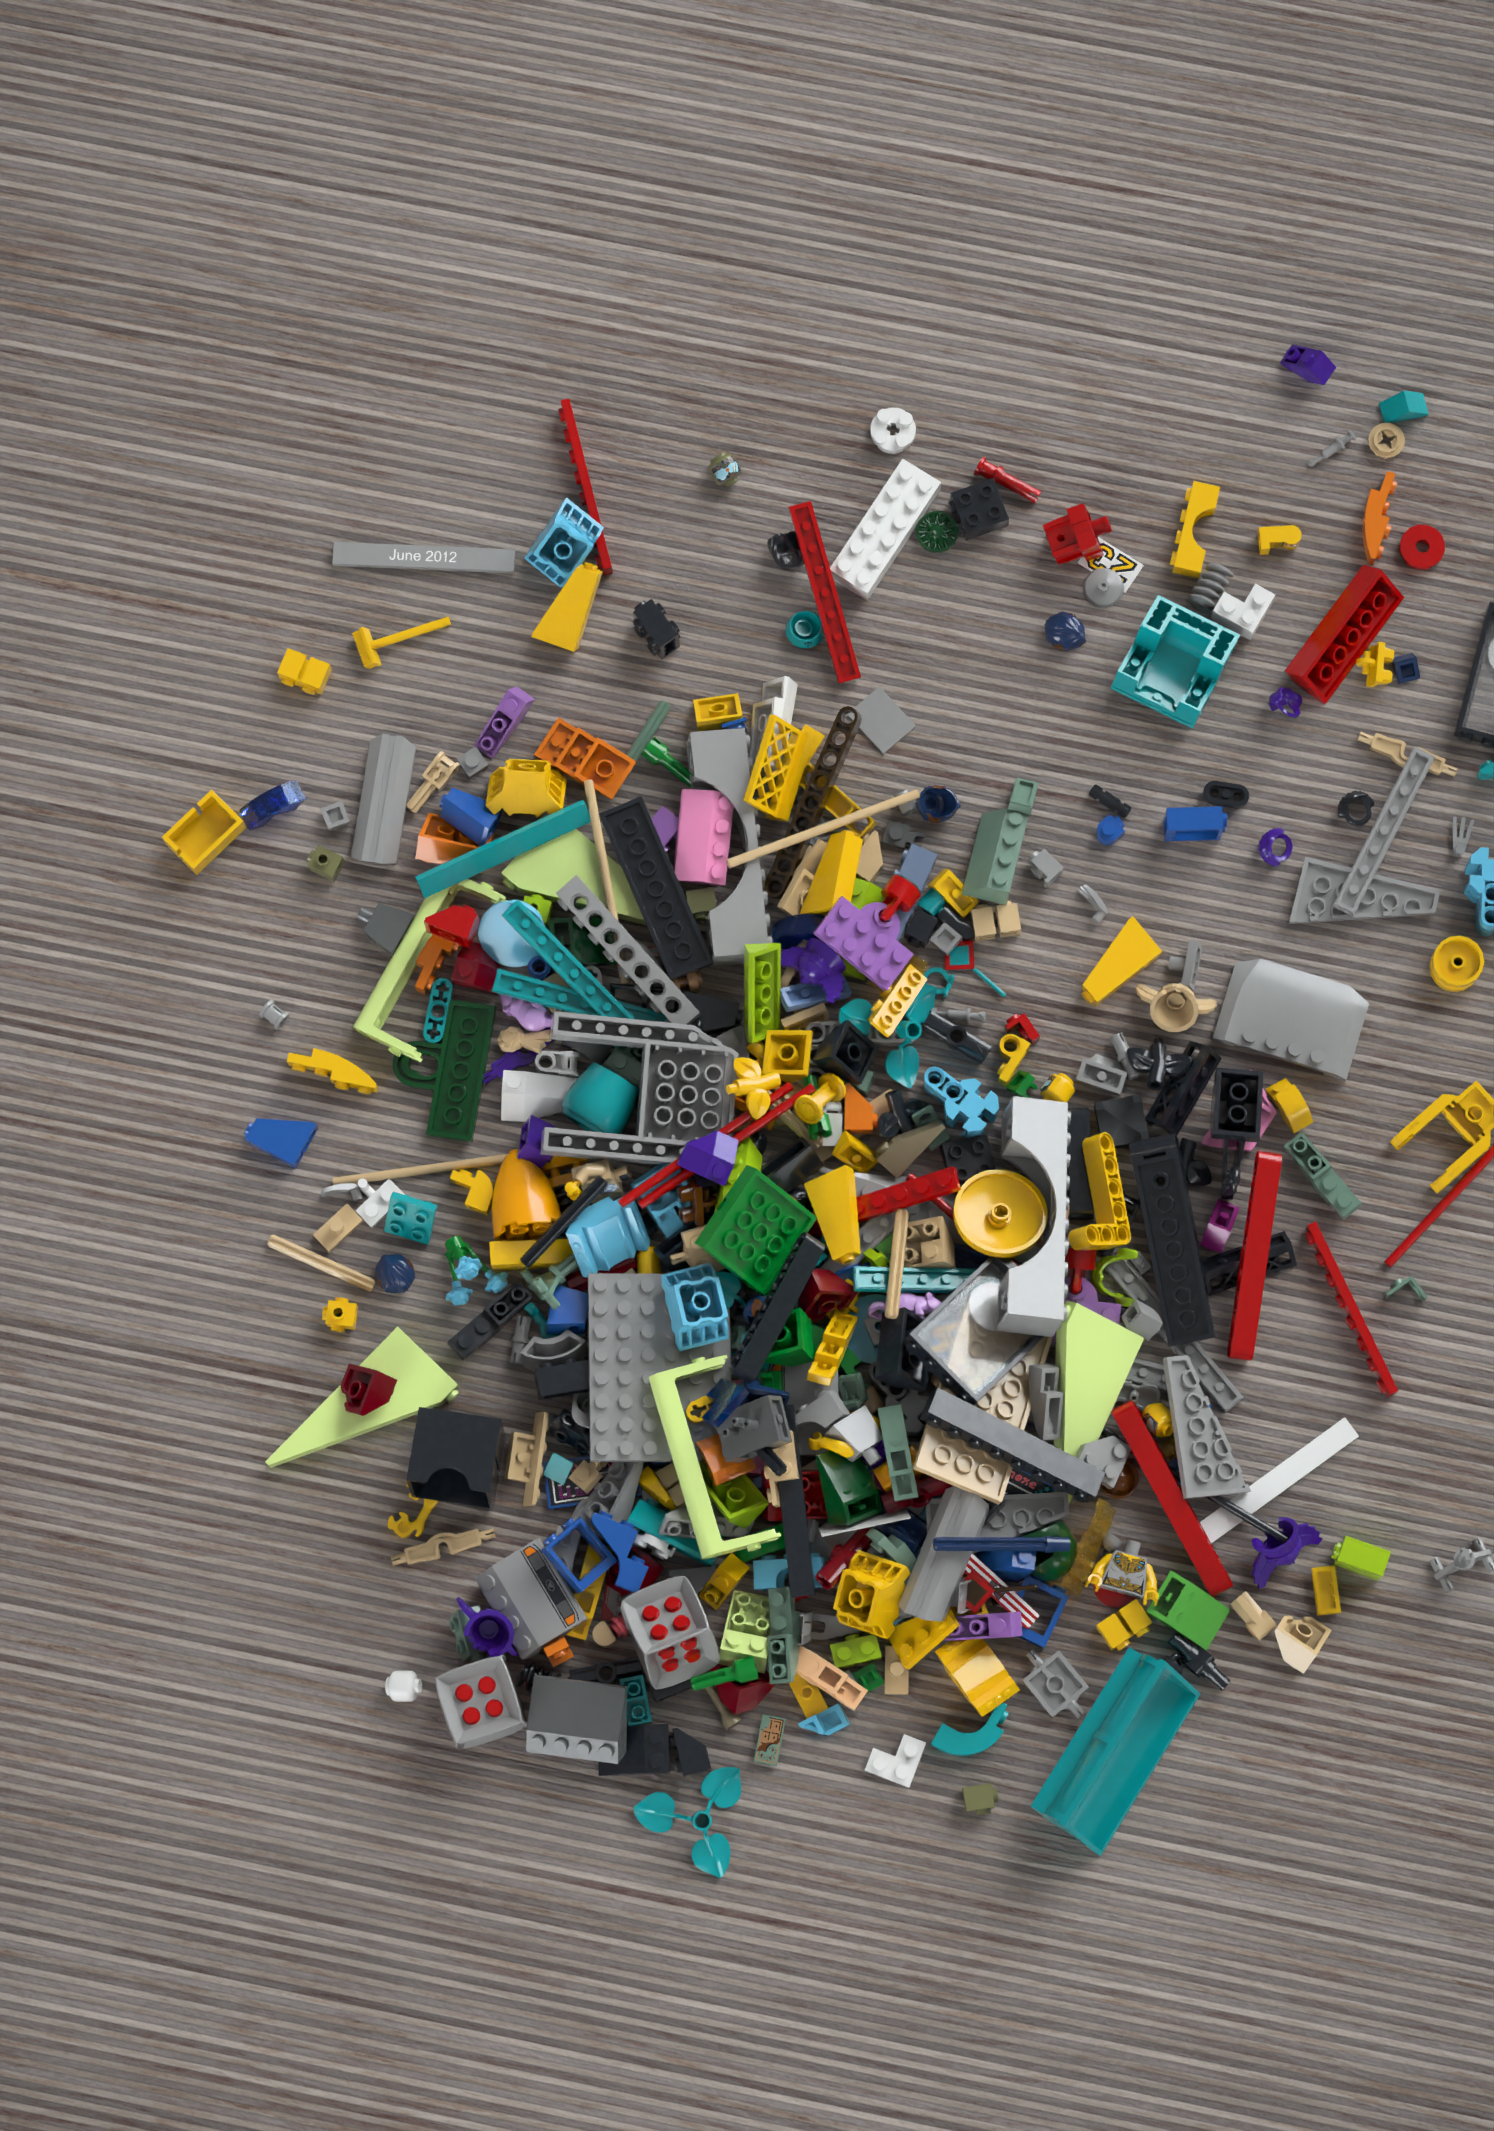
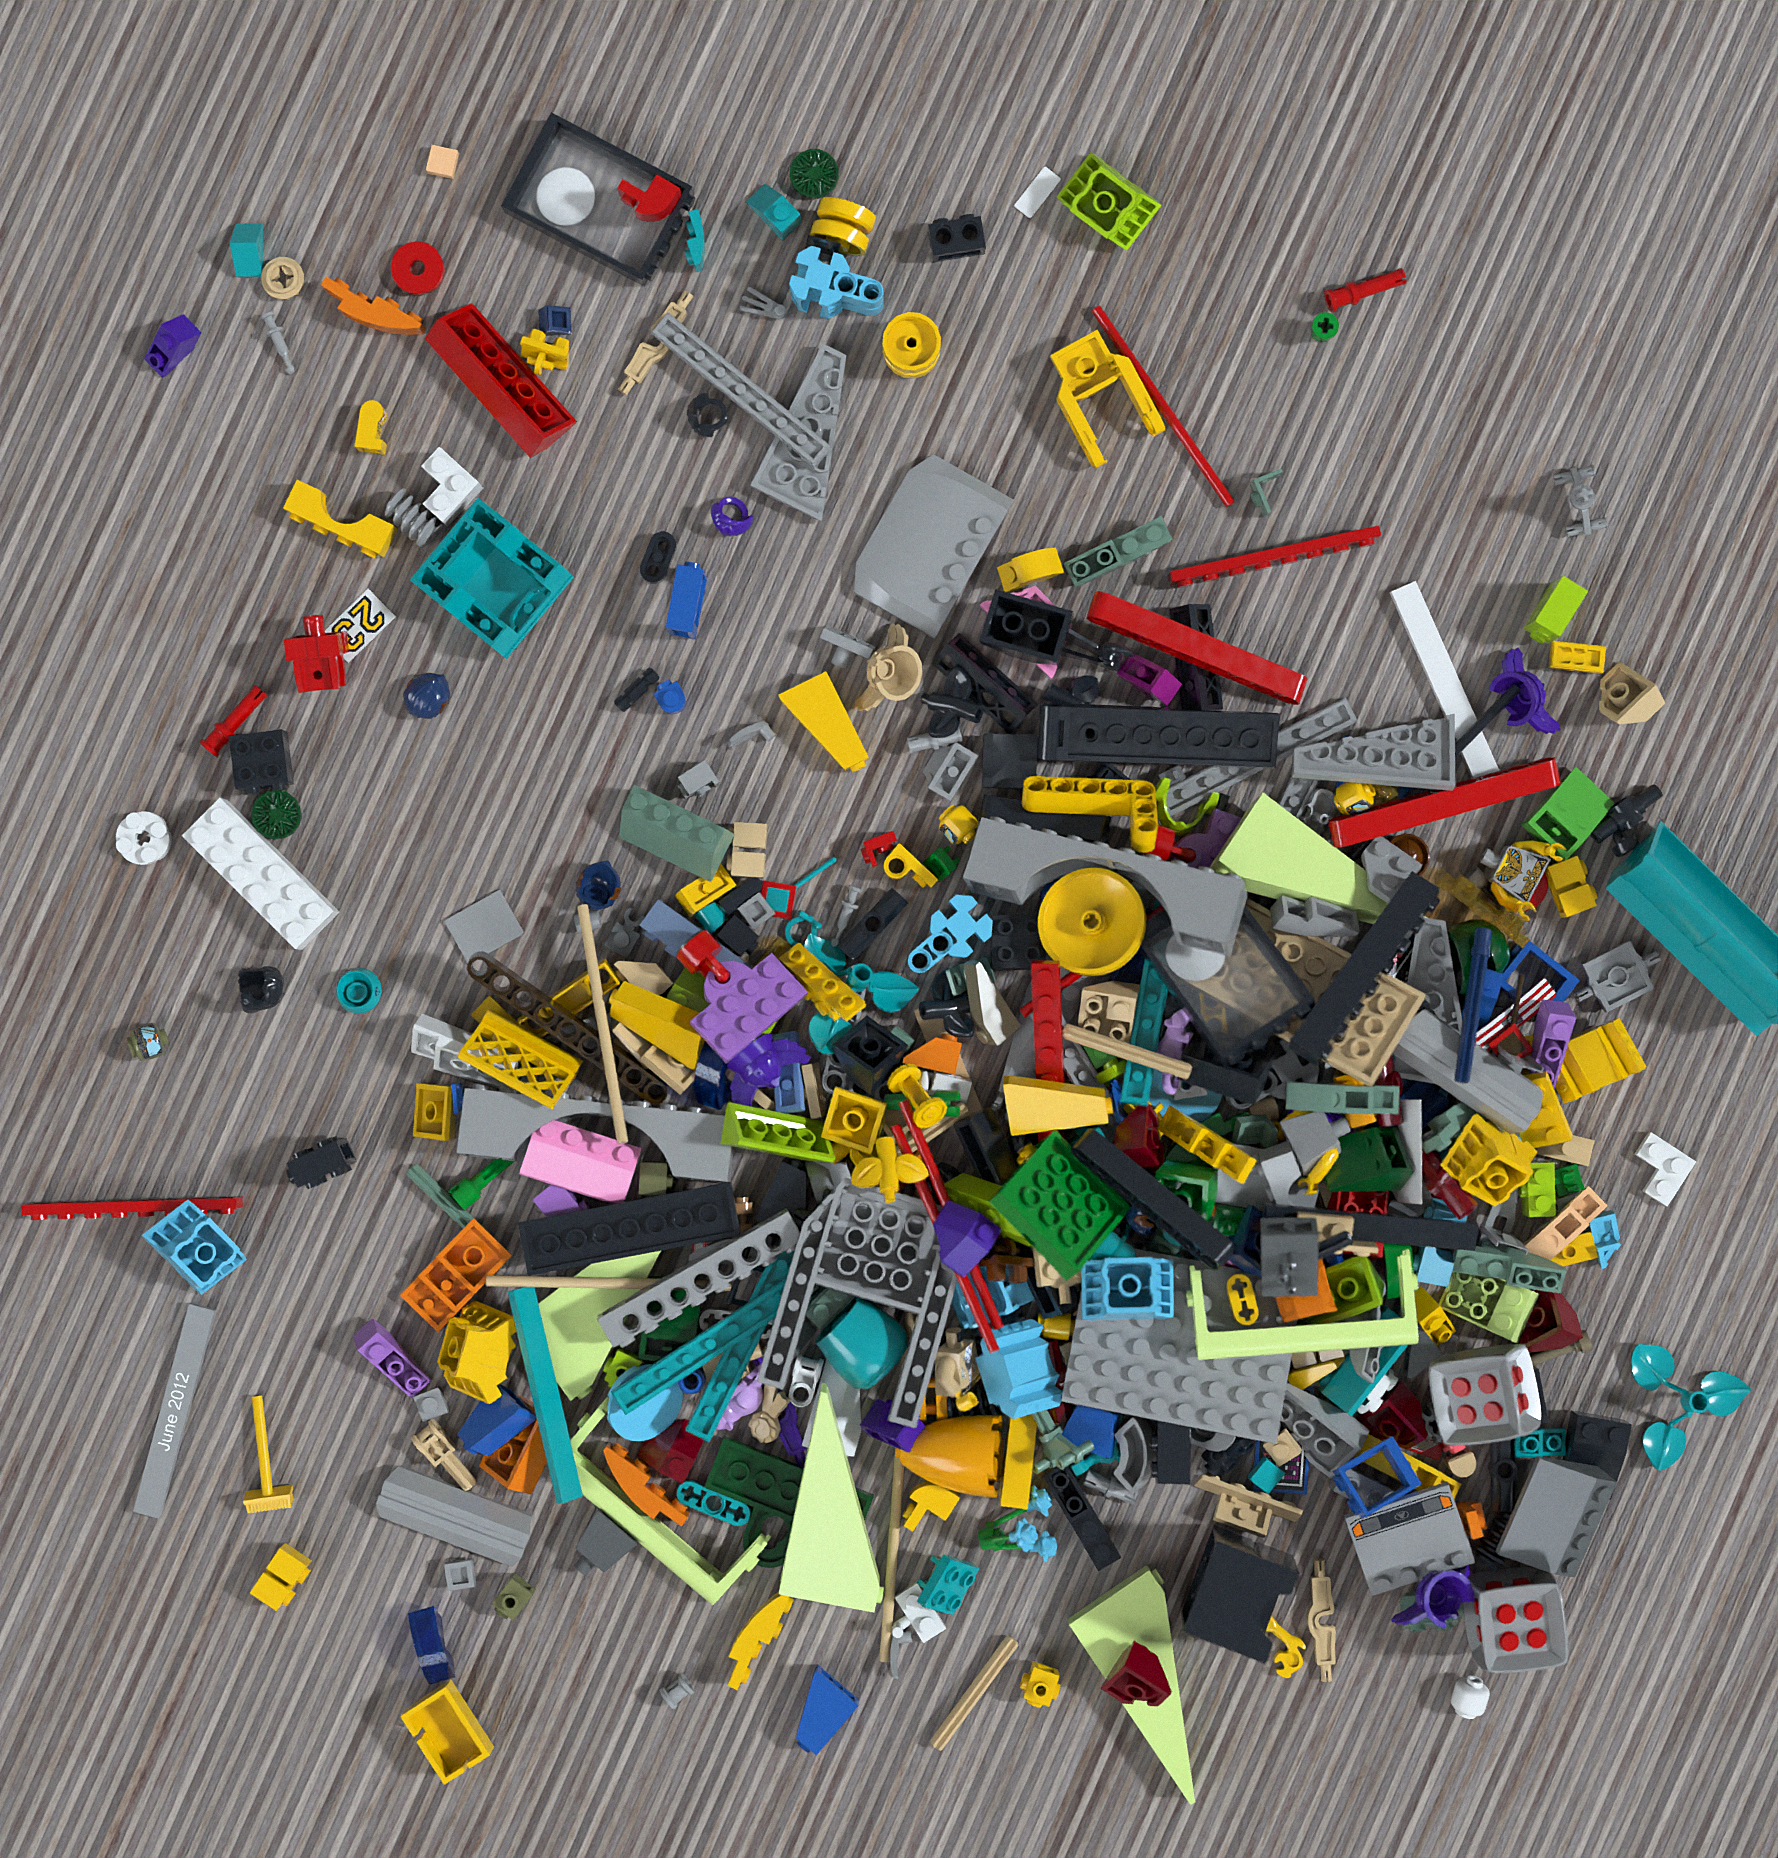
camera: 80 degrees left, 10 degrees up
(338, 1228) = (938, 1666): tan tile -> none
(394, 1273) = (1004, 1613): dark blue hair -> none
(428, 1109) = (828, 1539): none -> yellowish green slope
(454, 924) = (624, 1468): red slope -> none
(563, 1221) = (998, 1417): black axle -> none
(568, 614) = (279, 1258): yellow slope -> none
(620, 1540) = (1371, 1429): blue arch -> none
(692, 1754) = (1610, 1392): black slope -> none
(726, 1398) = (1247, 1276): clear blue tile -> none
(742, 1671) = (1541, 1321): green piece -> none
(769, 1740) = (1611, 1303): tile -> none
(824, 592) = (320, 960): red plate -> none
(855, 1153) = (981, 1067): yellow slope -> none
(969, 1744) = (1663, 1083): teal arch -> none
(980, 1798) = (1725, 1087): olive brick -> none
(1023, 796) = (611, 786): sand green tile -> none
(1103, 587) = (384, 640): light grey piece -> none
(1142, 1320) = (1240, 790): light grey brick -> none
(1257, 1621) = (1594, 740): tan piece -> none
(1286, 696) = (559, 462): dark purple piece -> none

